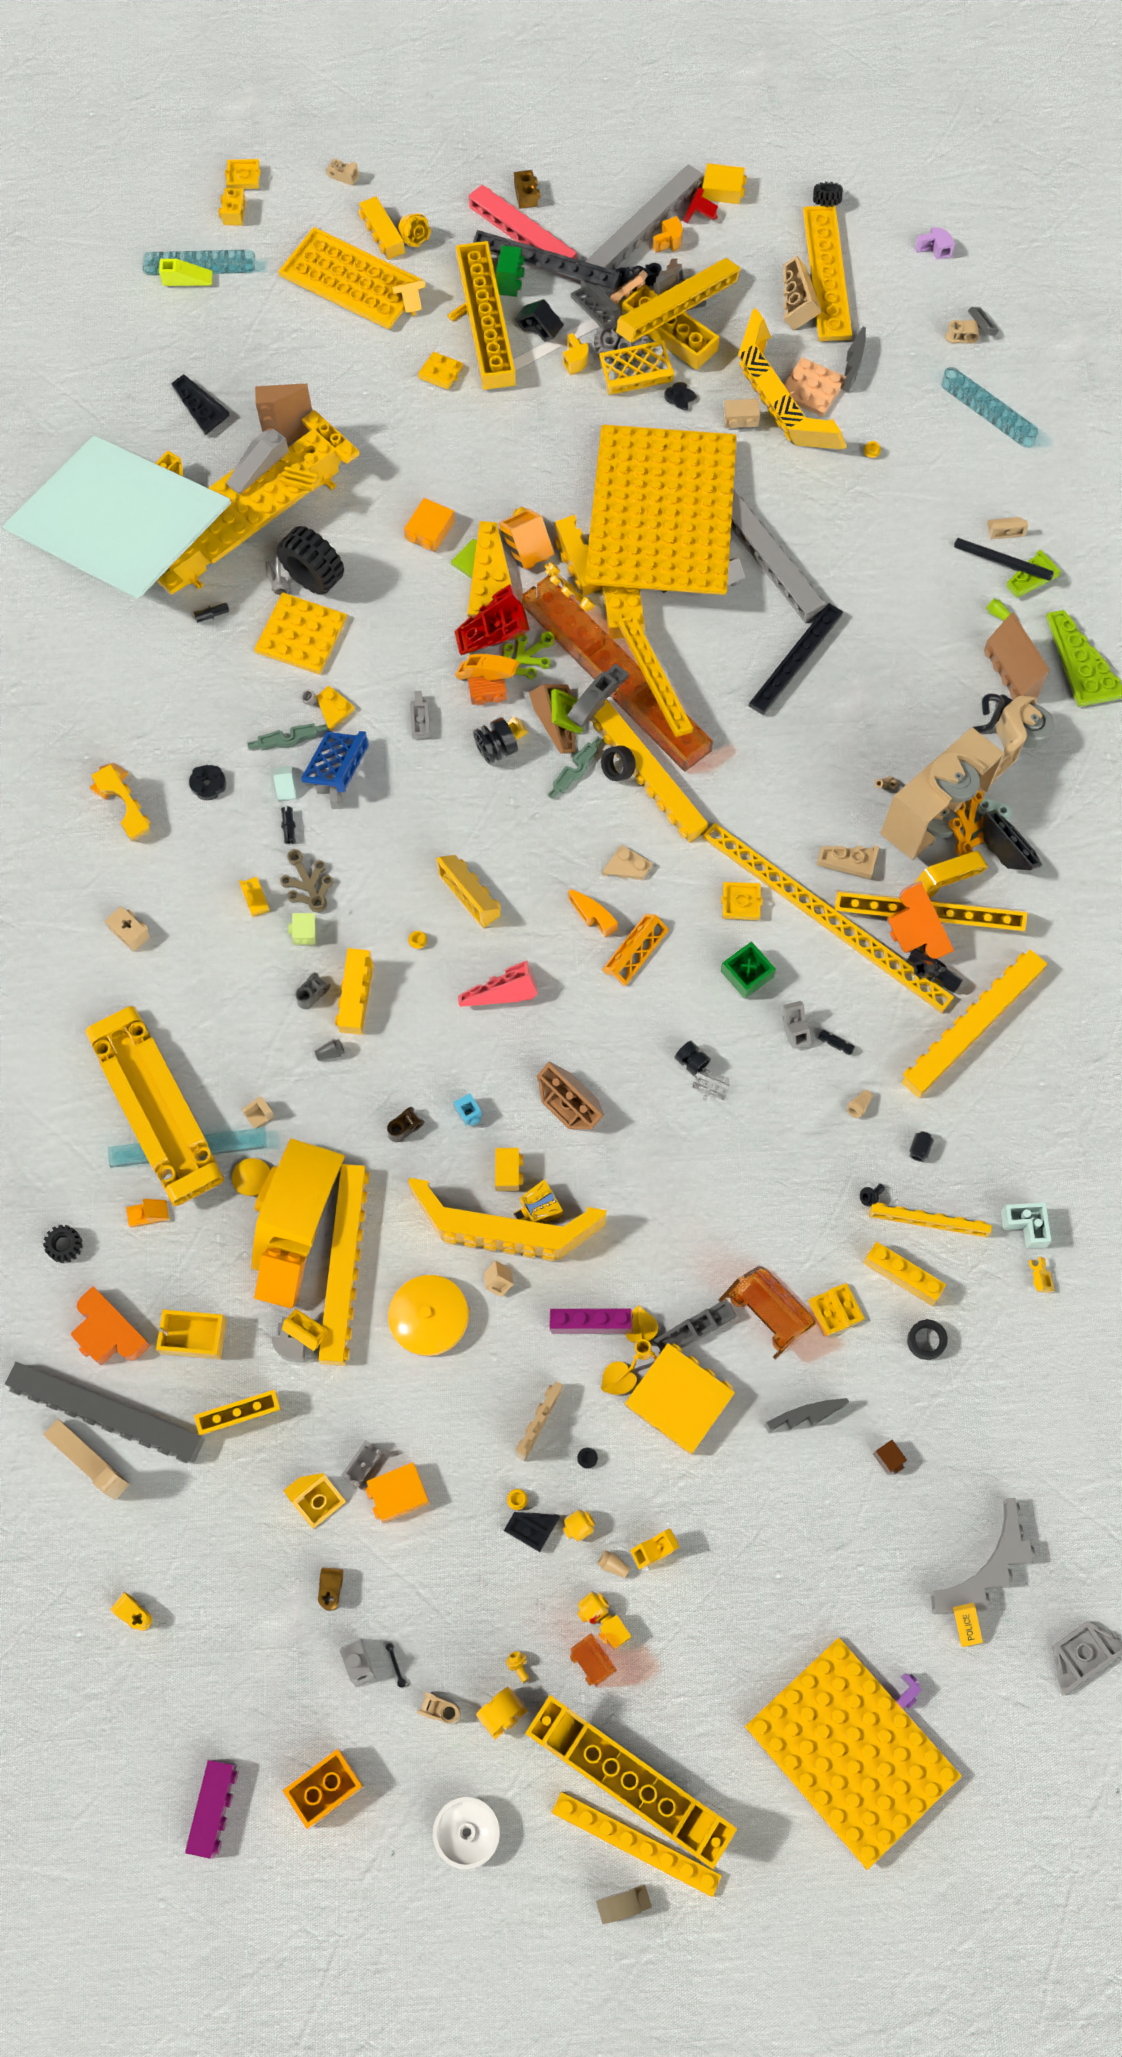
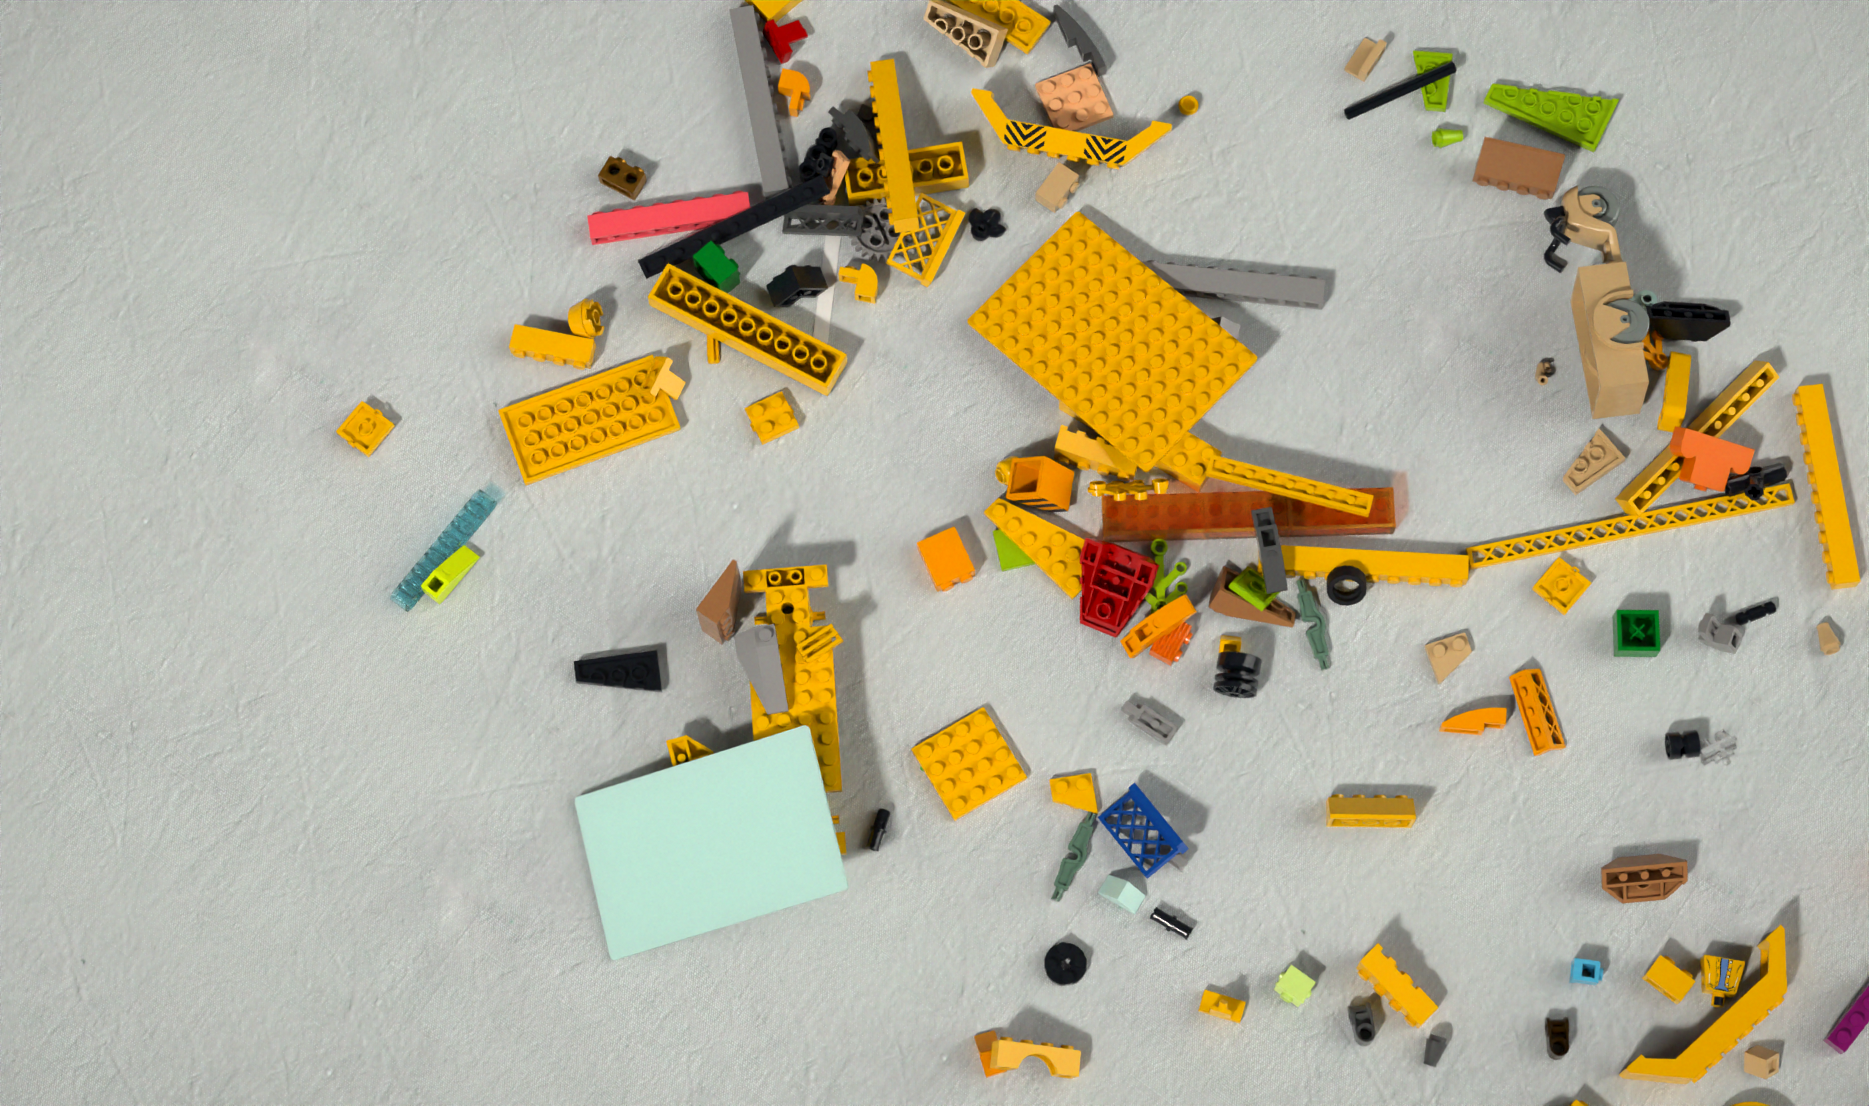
camera: 50 degrees left, 5 degrees up
(233, 206) = (401, 468): yellow brick -> none
(280, 583) = (900, 743): light grey plant -> none
(308, 697) = (1045, 807): light grey hinge -> none
(308, 883) = (1246, 948): dark tan plant -> none
(310, 560) = (914, 698): black tyre -> none
(343, 172) = (446, 332): tan leg -> none
(417, 939) = (1381, 893): yellow plate -> none
(513, 986) = (1490, 851): coral wedge -> none
(795, 659) = (1356, 348): black plate -> none

